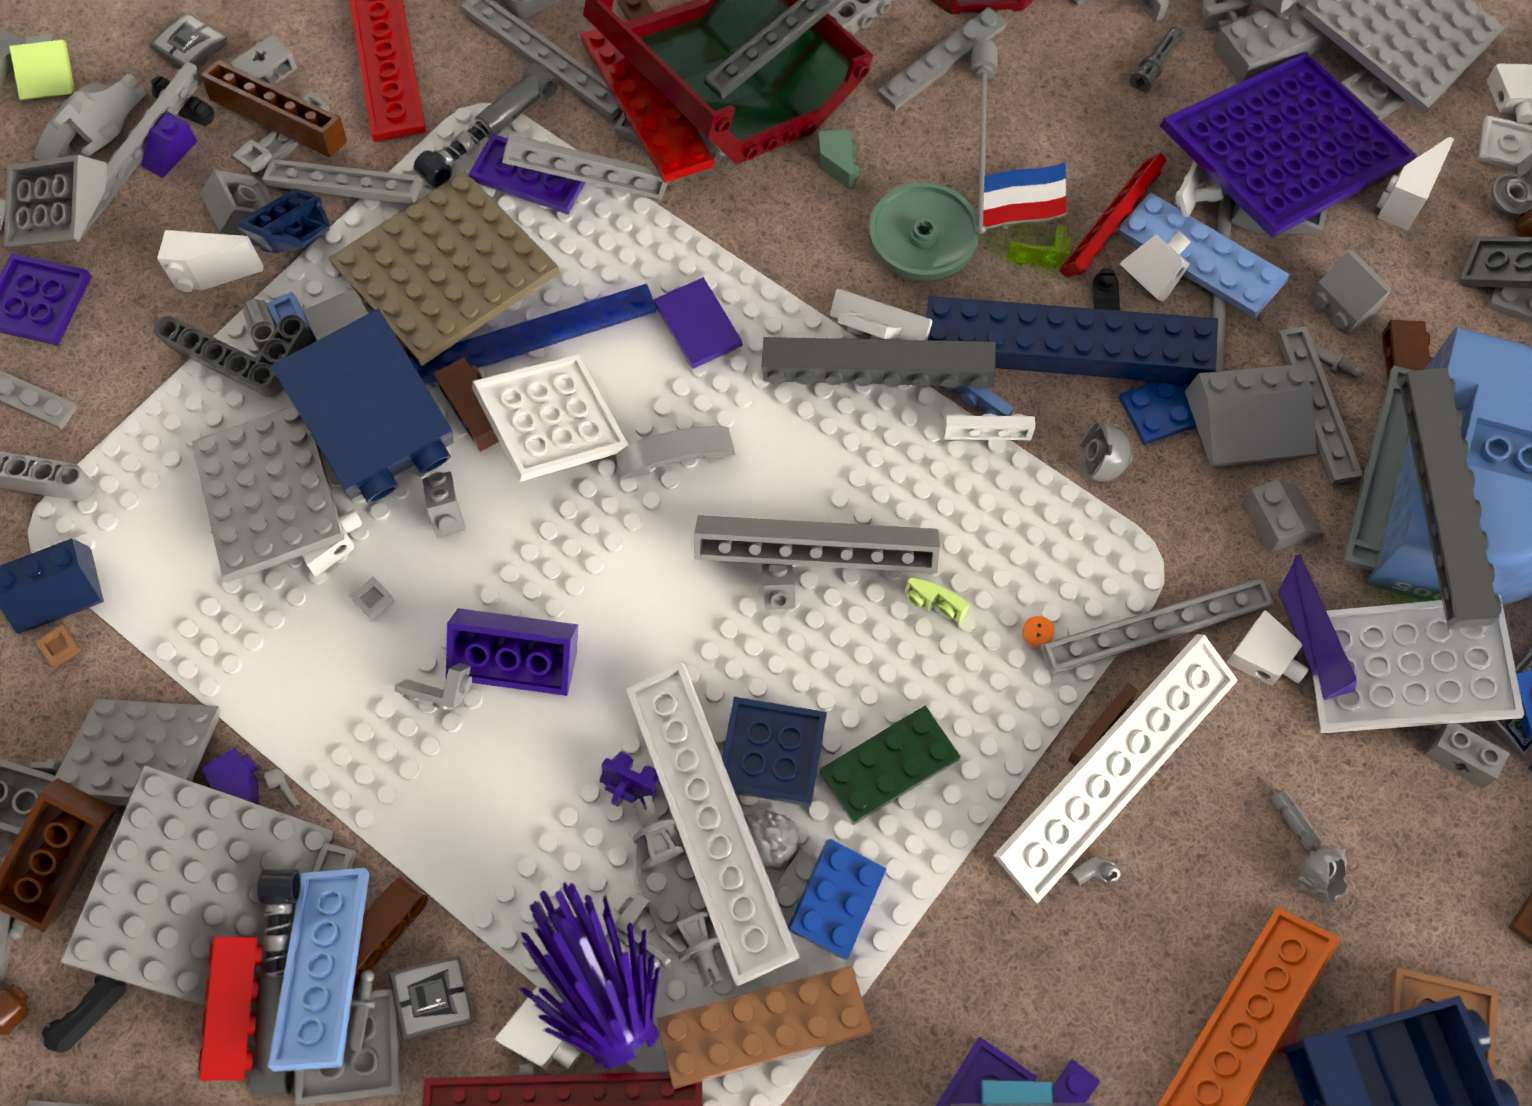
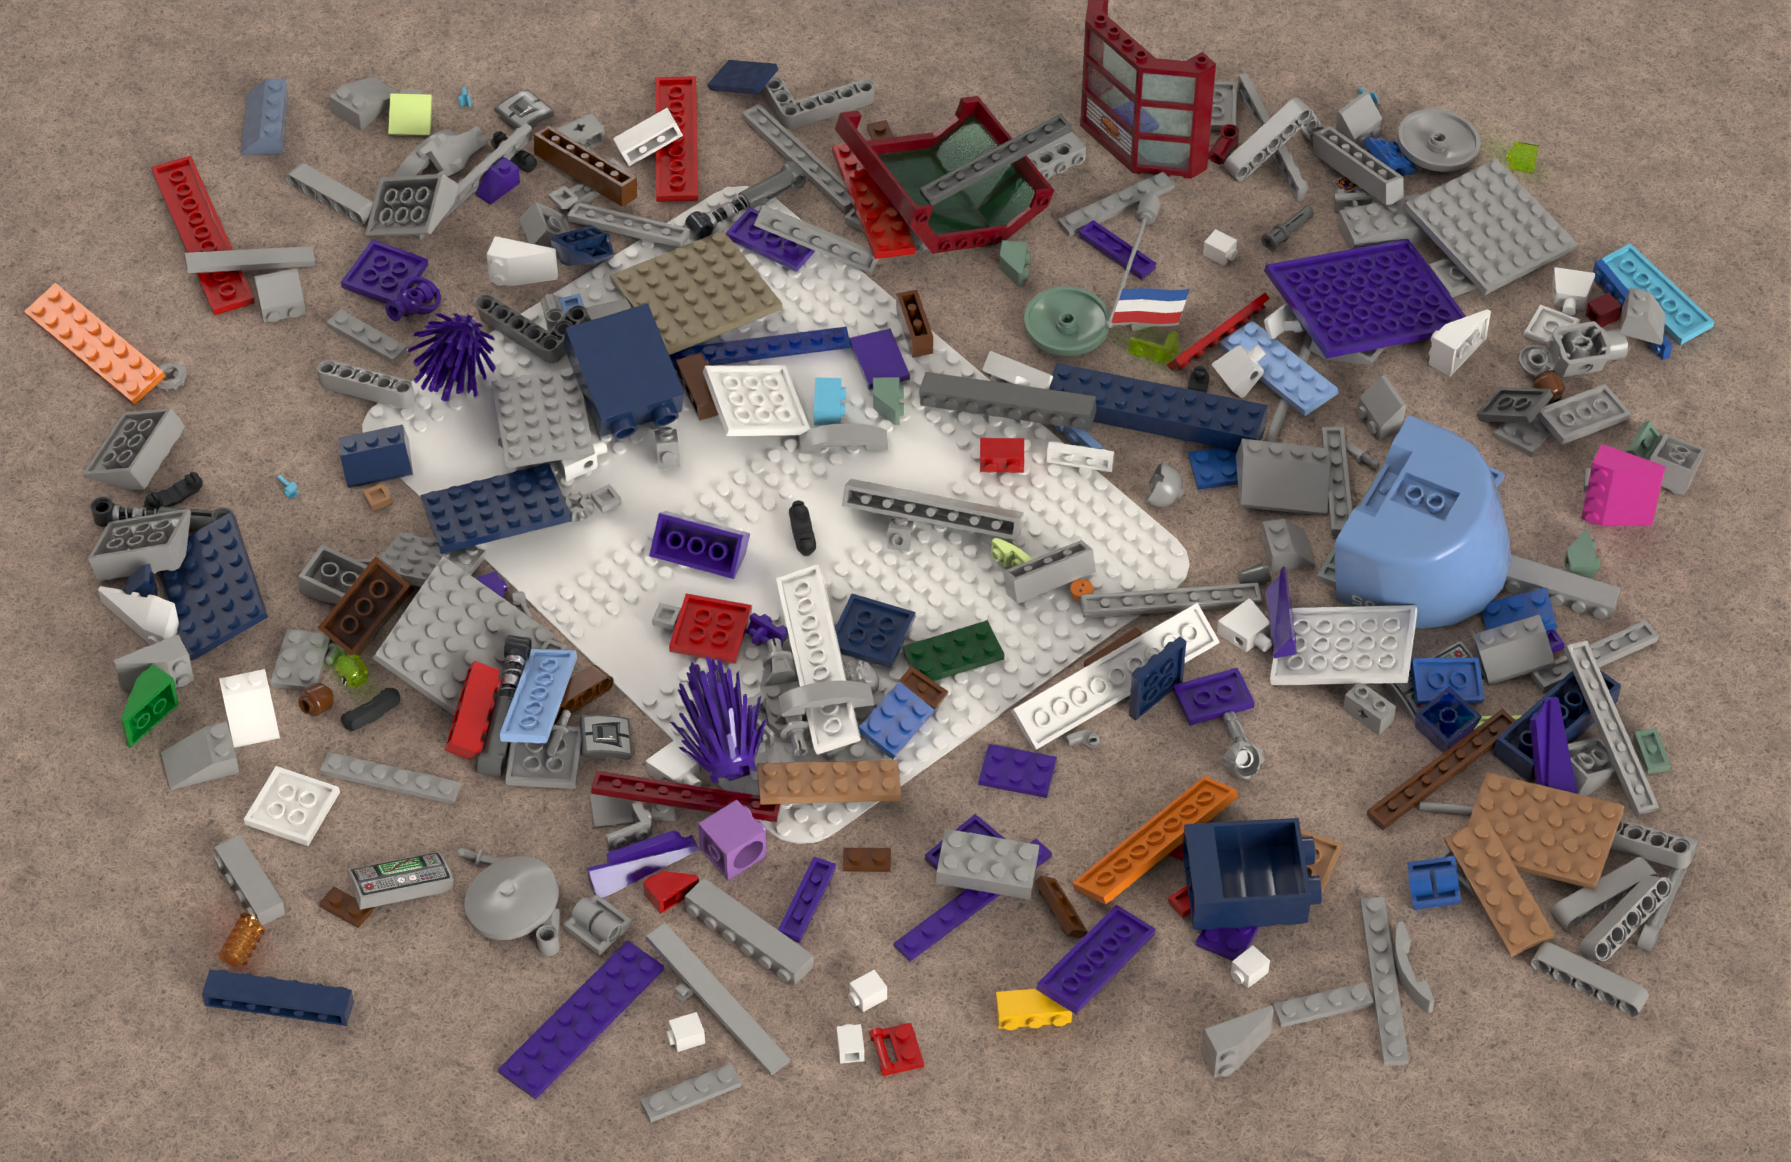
camera: 10 degrees right, 15 degrees down
(46, 949) = (351, 670): none -> clear neon green head
(71, 337) = (410, 300): none -> dark purple piece
(111, 37) = (464, 99): none -> medium azure hand
(127, 419) = (454, 347): none -> dark purple plant
(220, 645) = (495, 508): none -> dark blue plate
(335, 629) = (586, 506): none -> light grey gear
(347, 56) = (648, 137): none -> white brick
(456, 686) = (656, 557): light grey bracket -> none
(485, 778) = (666, 616): none -> light grey plate
(549, 787) = (710, 628): none -> red plate
(644, 398) = (827, 401): none -> medium azure brick
(647, 602) = (802, 528): none -> black piece
(720, 383) = (886, 398): none -> sand green slope
(734, 267) = (914, 323): none -> reddish brown brick
(734, 893) = (823, 694): none -> light grey slope
(863, 837) = (924, 687): none -> reddish brown plate
(887, 442) = (1002, 455): none -> red brick
(958, 119) = (1116, 249): none -> dark purple plate
(993, 616) = (1049, 571): none -> light grey brick
(1018, 942) = (1017, 770): none -> dark purple plate
(1085, 98) = (1220, 247): none -> white brick
(1183, 768) = (1157, 677): none -> dark blue plate
(1252, 769) = (1213, 696): none -> dark purple plate
(1256, 565) = (1256, 574): none -> dark grey cone
(1449, 499) = (1366, 516): dark grey brick -> none

